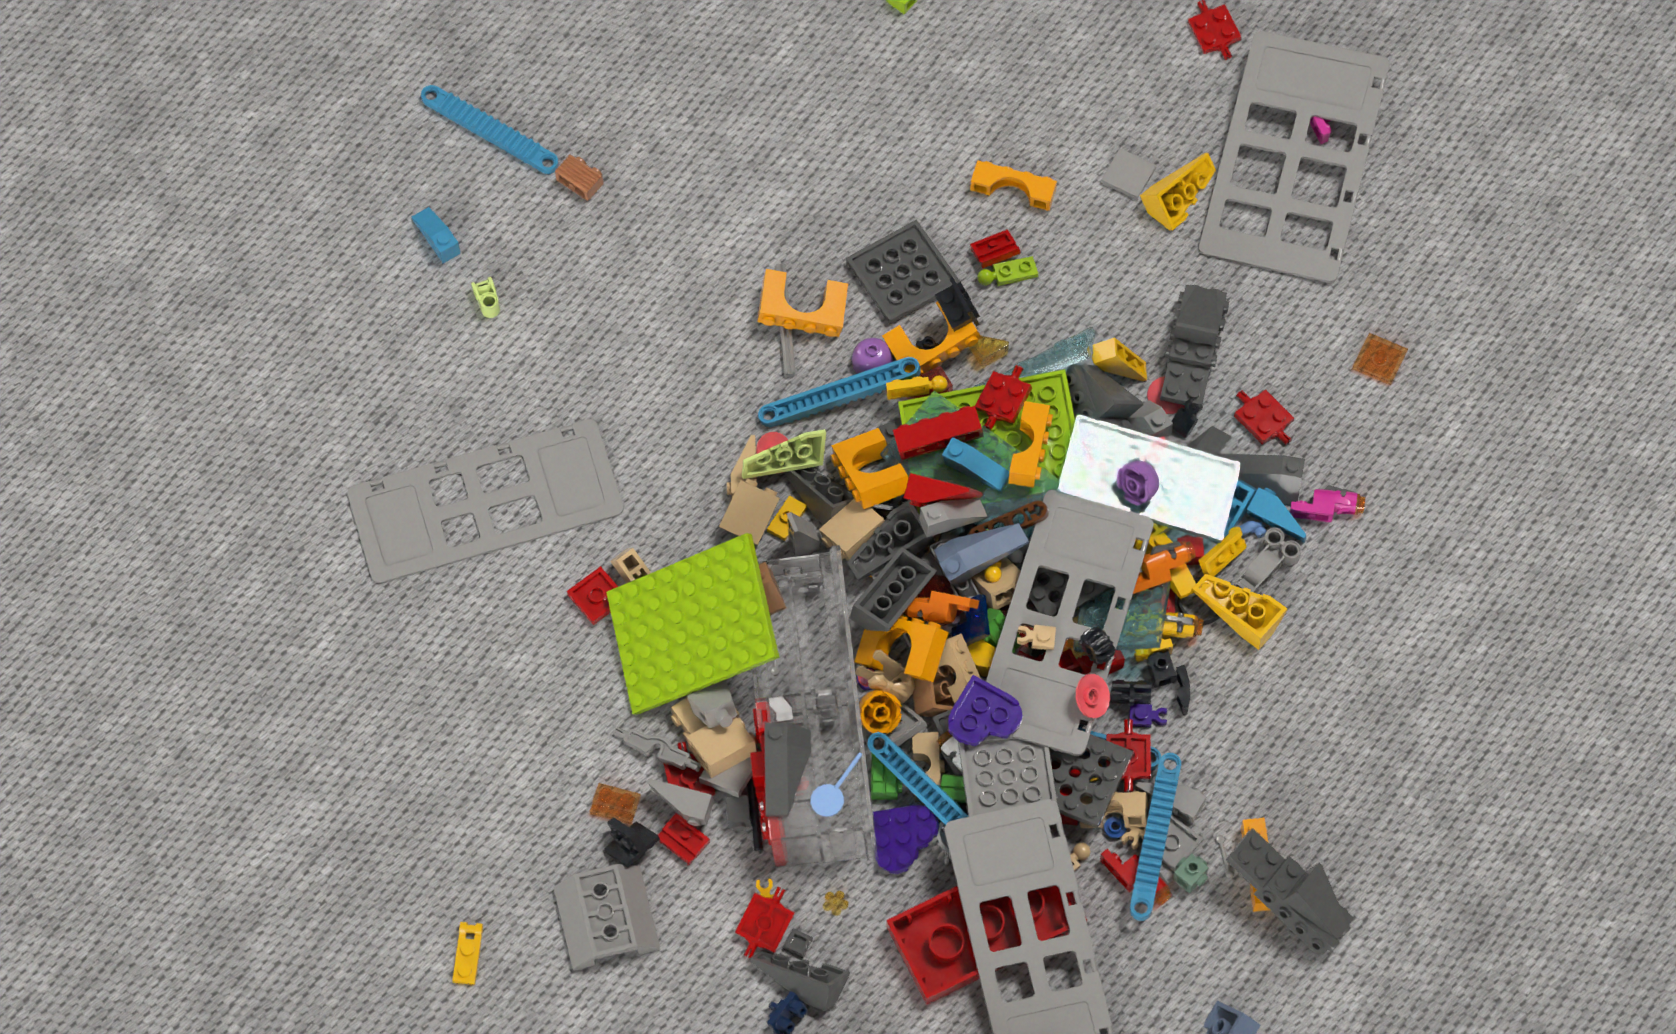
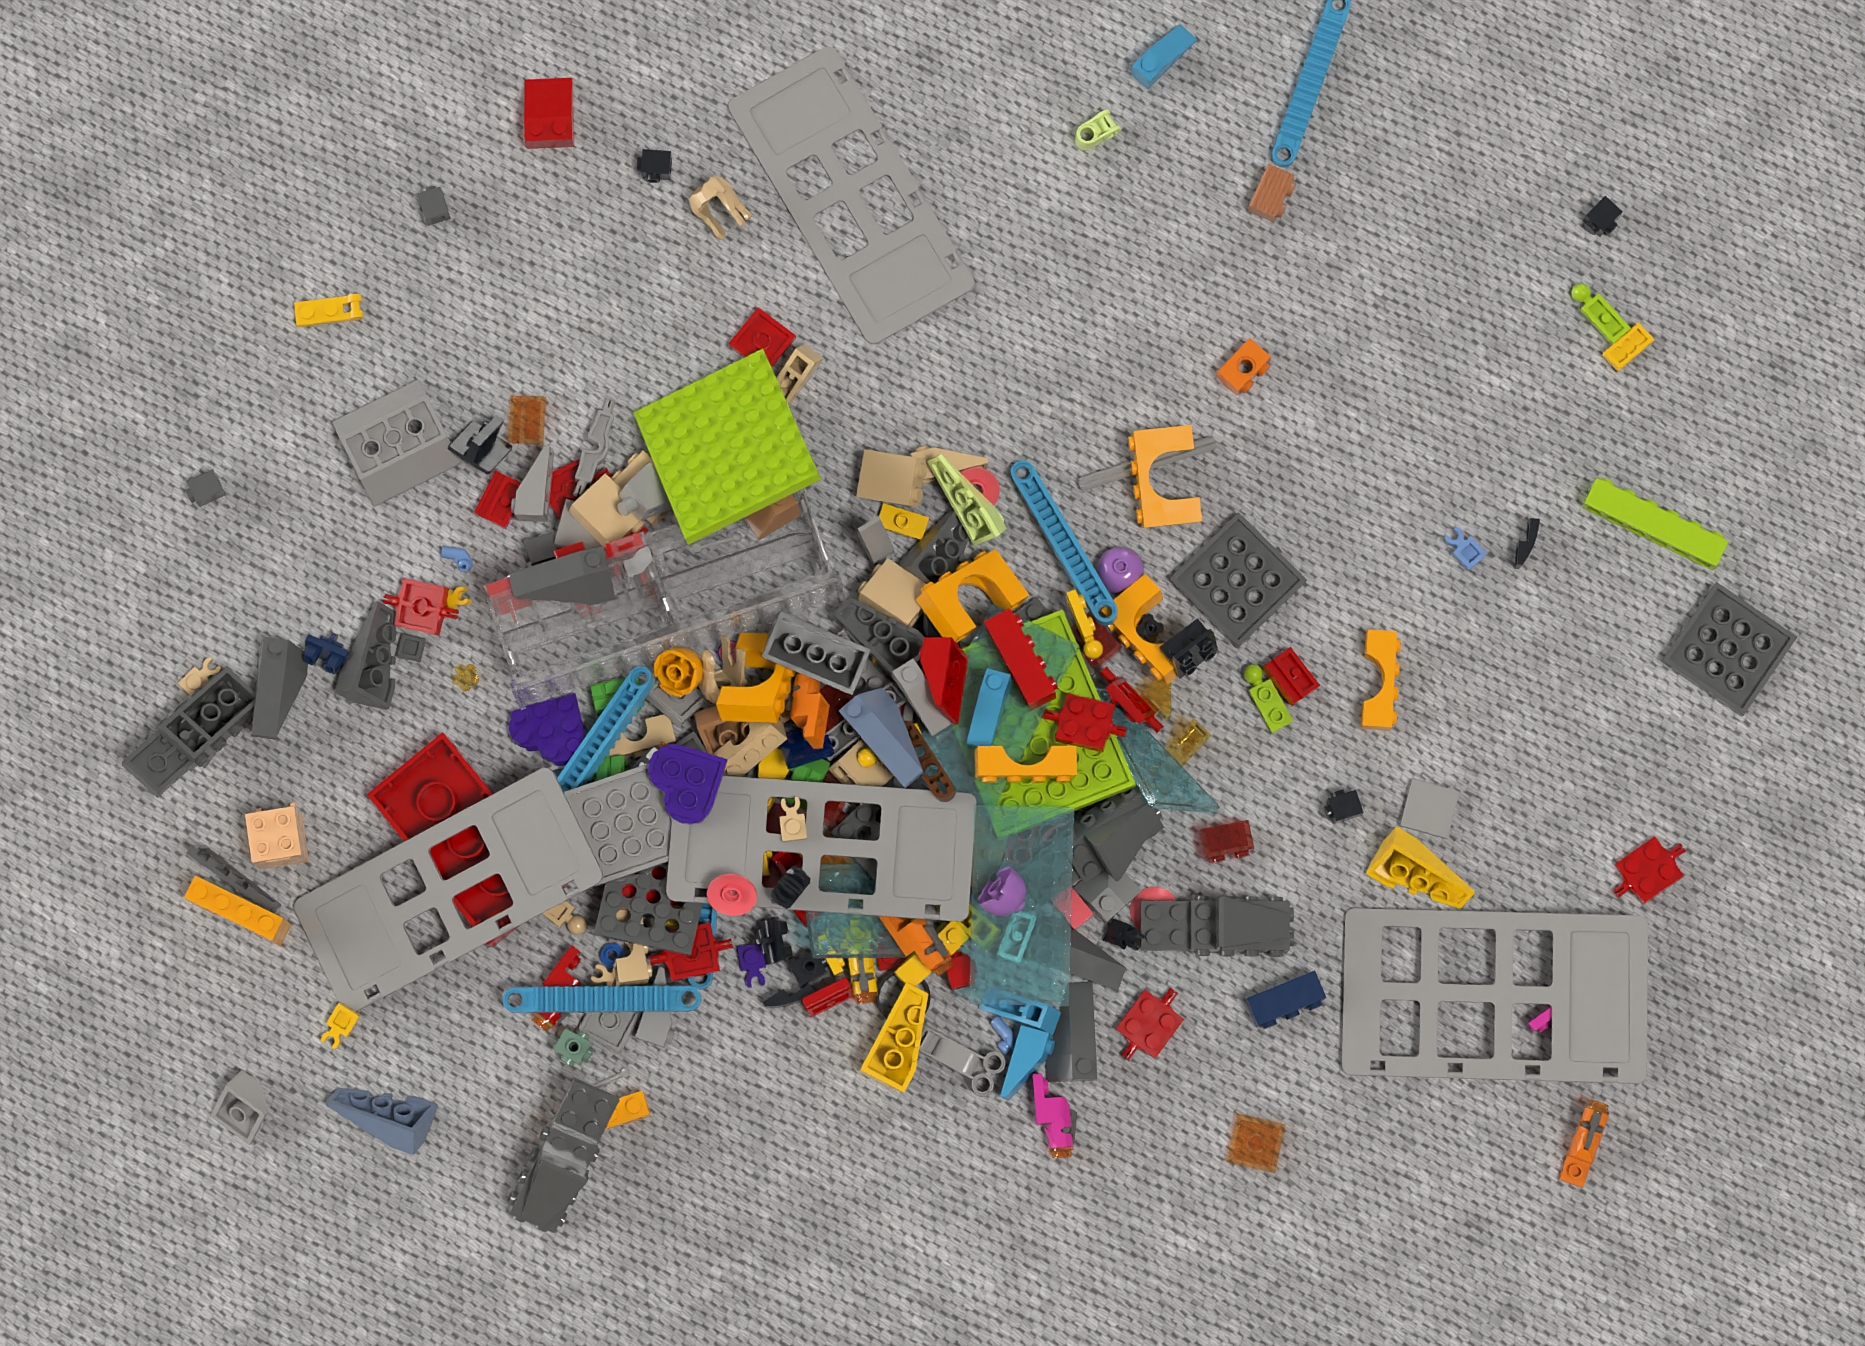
camera: 75 degrees right, 15 degrees up
(340, 728) = (548, 113): none -> red slope
(396, 841) = (433, 205): none -> dark grey brick
(414, 649) = (655, 165): none -> black brick
(455, 605) = (722, 189): none -> tan piece
(718, 218) = (1250, 354): none -> orange brick
(725, 884) = (459, 555): none -> medium blue arm
(827, 798) = (541, 634): light blue piece -> none
(920, 99) = (1467, 551): none -> medium blue plate
(931, 58) = (1524, 548): none -> black slope
(984, 372) = (1136, 707): none -> red plate
(1031, 334) = (1189, 742): none -> clear yellow slope
(1113, 233) = (1343, 806): none -> black brick
(1118, 359) = (1172, 845): yellow slope -> none
(1122, 323) = (1226, 841): none -> clear red brick
(1187, 651) = (828, 997): none -> red plate
(1223, 552) = (959, 1008): yellow plate -> none
(1265, 309) = (1286, 1000): none -> dark blue brick
(1428, 119) = (1585, 1143): none -> orange plate

